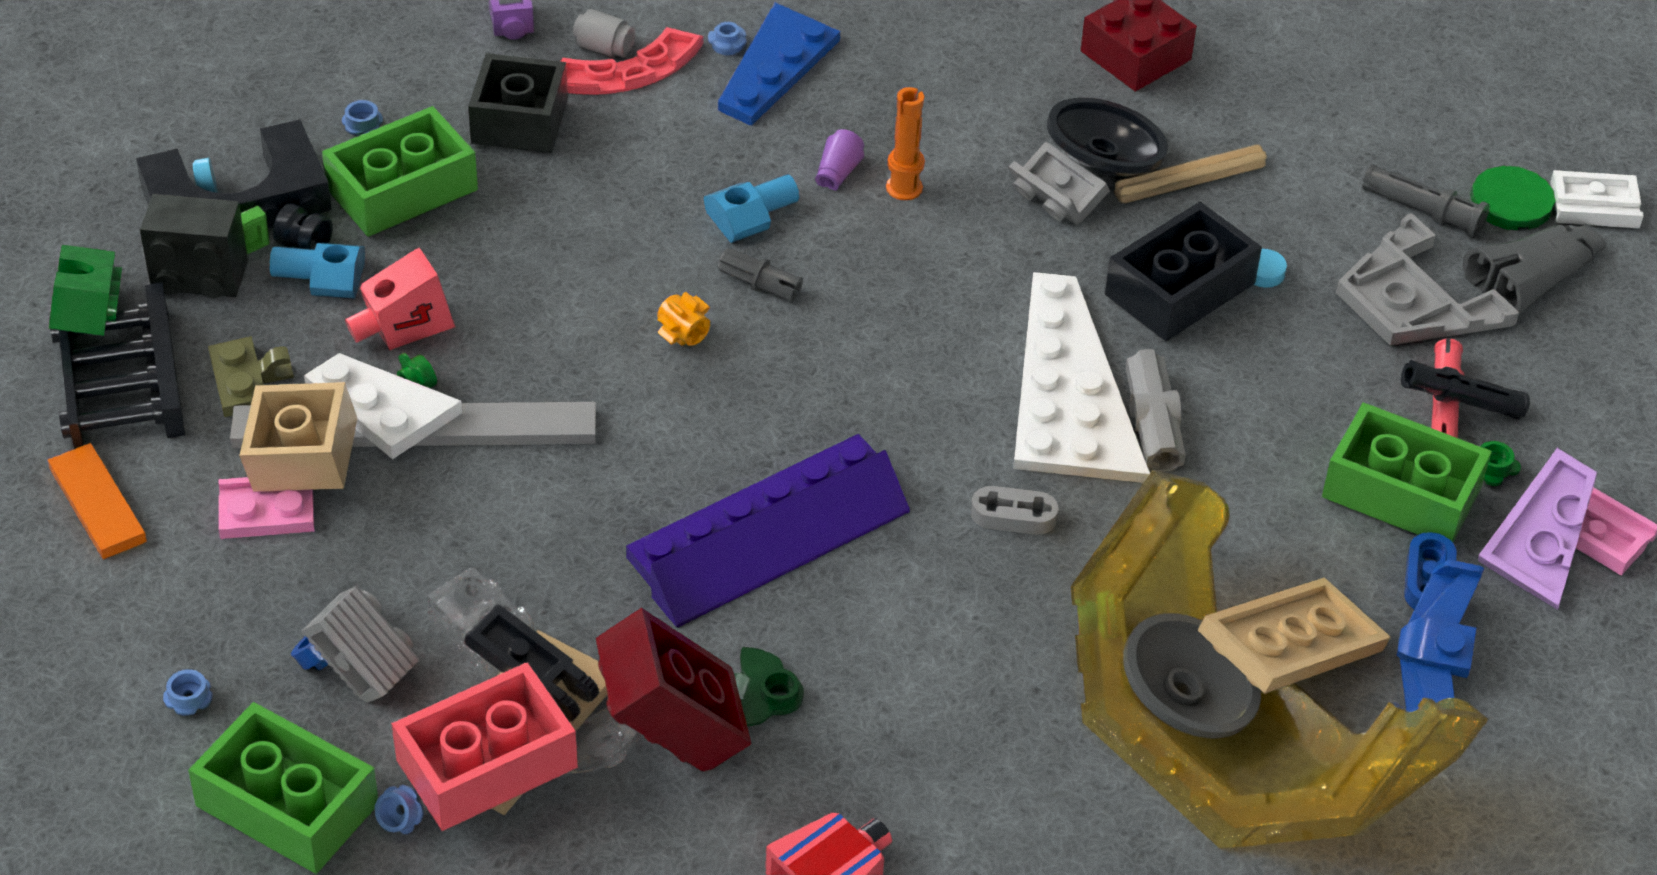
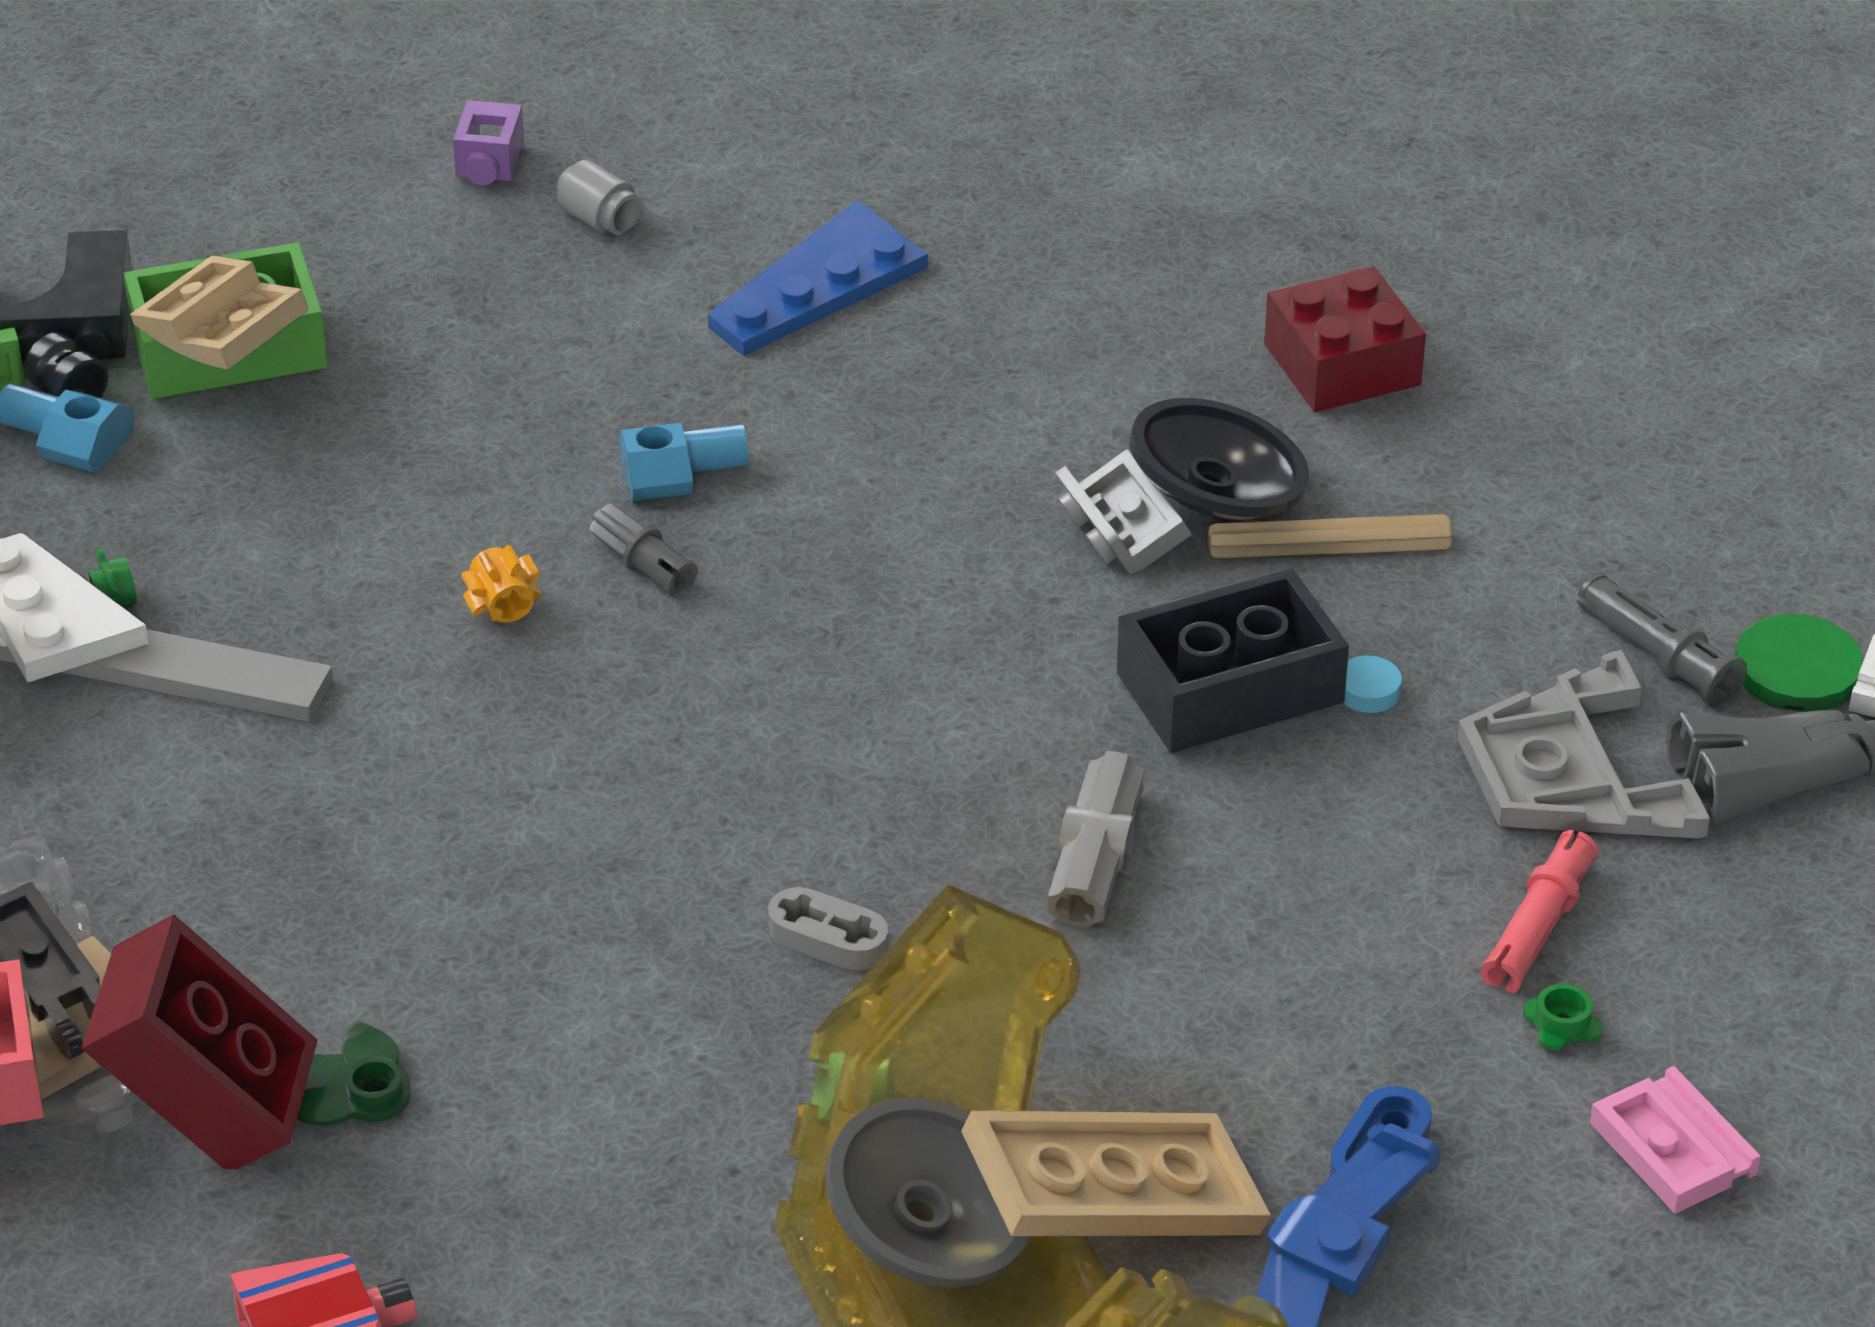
camera: 20 degrees right, 5 degrees down
(361, 117) = (220, 240): medium blue plate -> none
(402, 303) = (135, 488): coral torso -> none
(408, 168) = (219, 312): none -> tan slope
(518, 103) = (427, 263): pearl dark grey brick -> none
(651, 64) = (582, 256): coral tile -> none
(727, 38) = (767, 235): medium blue plate -> none
(768, 529) = (473, 877): dark purple slope -> none
(840, 157) = (834, 419): medium lavender cone -> none
(906, 159) = (912, 434): orange pin -> none
(1069, 399) = (995, 787): white wing -> none
(1405, 473) = (1408, 999): bright green brick -> none
(1450, 385) = (1535, 892): black pin -> none
(1543, 529) = (1573, 1118): lavender wing -> none

